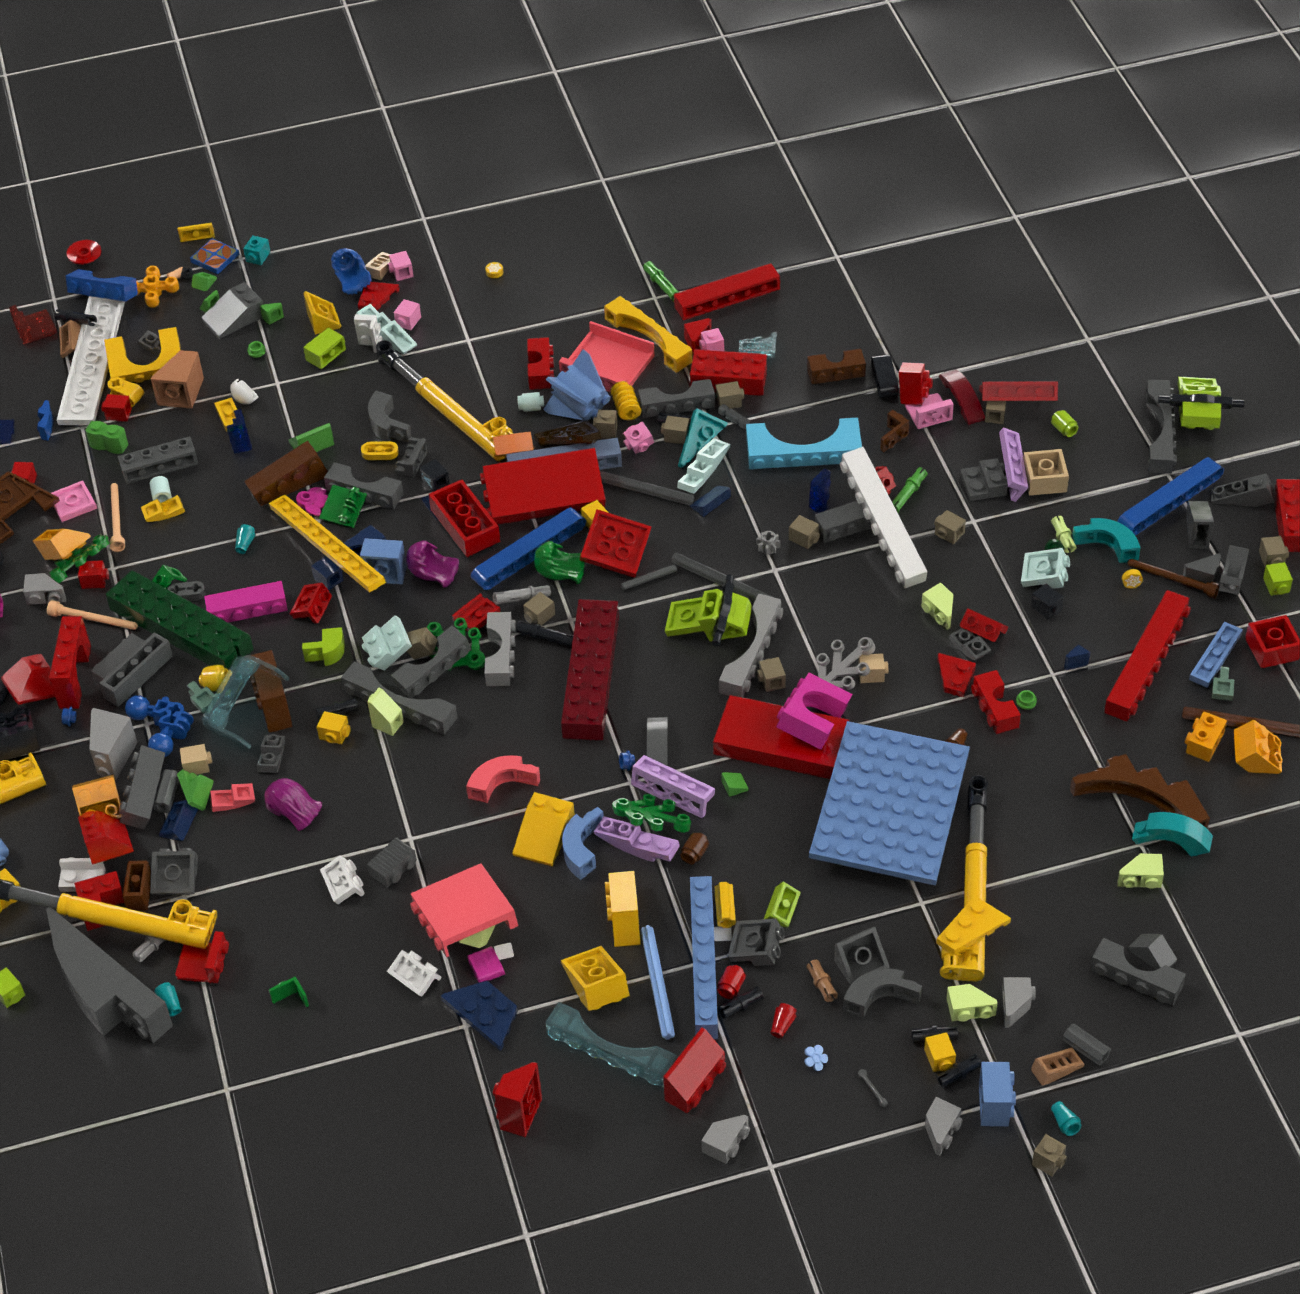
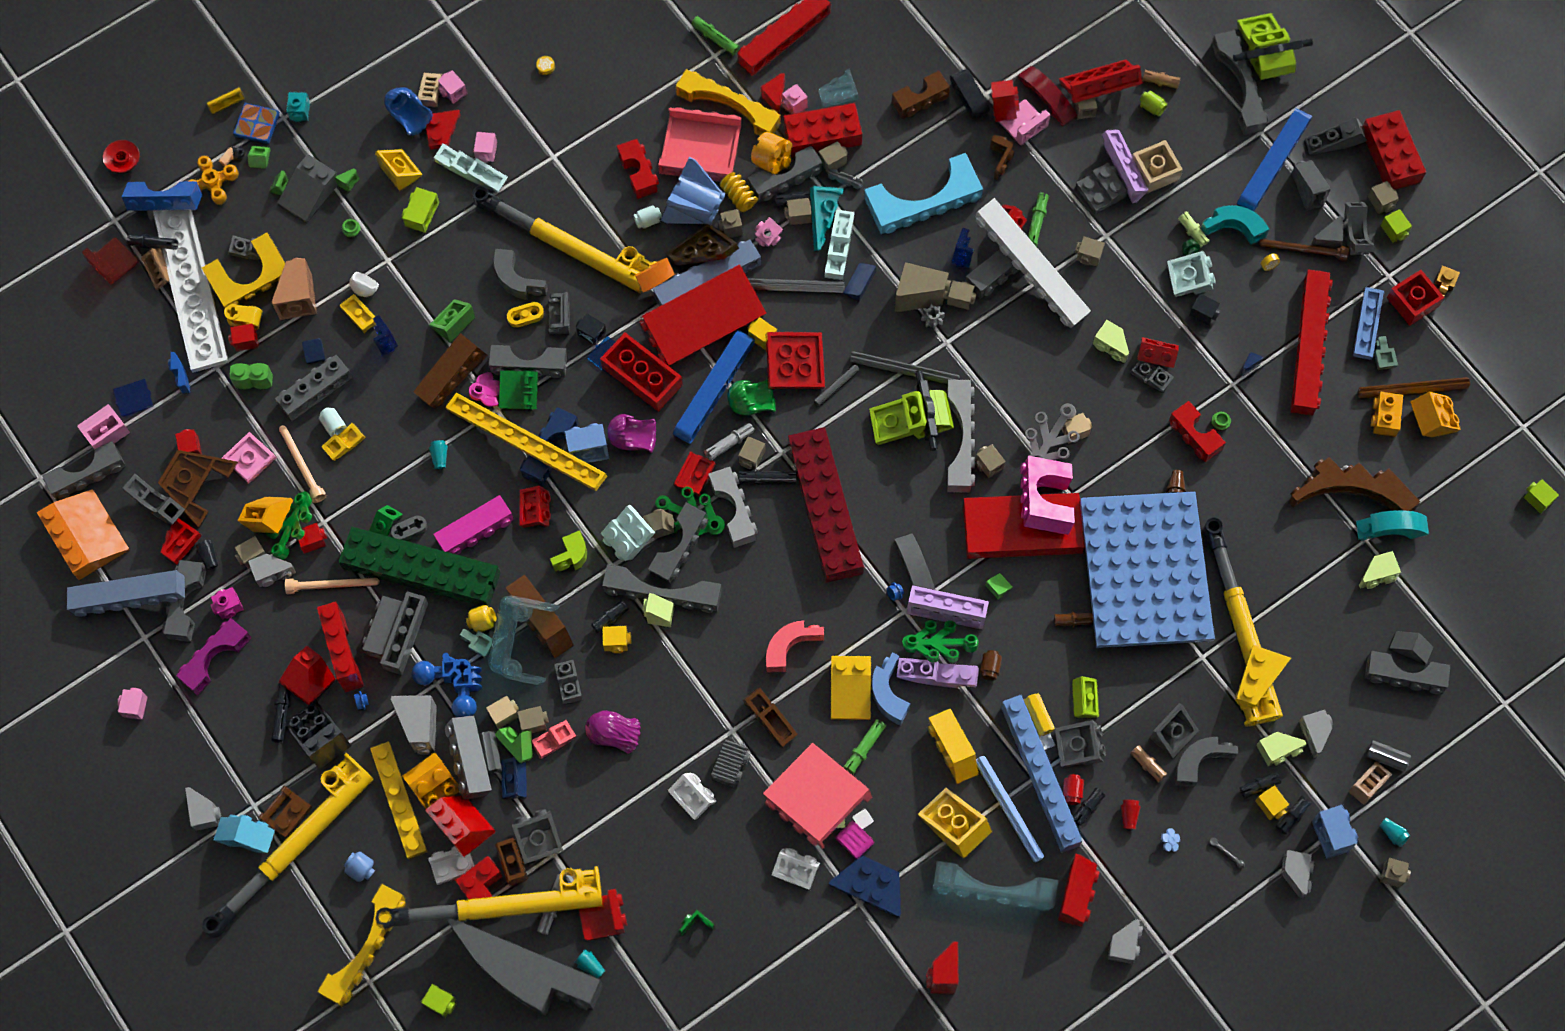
camera: 20 degrees left, 20 degrees up
(30, 566) = (249, 550): none -> dark tan brick
(60, 809) = (398, 800): none -> yellow plate
(173, 431) = (313, 350): none -> dark blue slope
(221, 773) = (533, 719): none -> dark tan brick
(367, 330) = (457, 179): white bracket -> none
(451, 832) = (770, 716): none -> reddish brown slope
(526, 889) = (859, 753): none -> bright green pin
(669, 375) = (771, 153): none -> light orange brick
(763, 511) = (921, 287): none -> dark tan slope
(795, 831) = (1073, 619): none -> reddish brown axle
(955, 674) = (1150, 410): red wing -> none
(1081, 407) = (1161, 79): none -> medium nougat pin

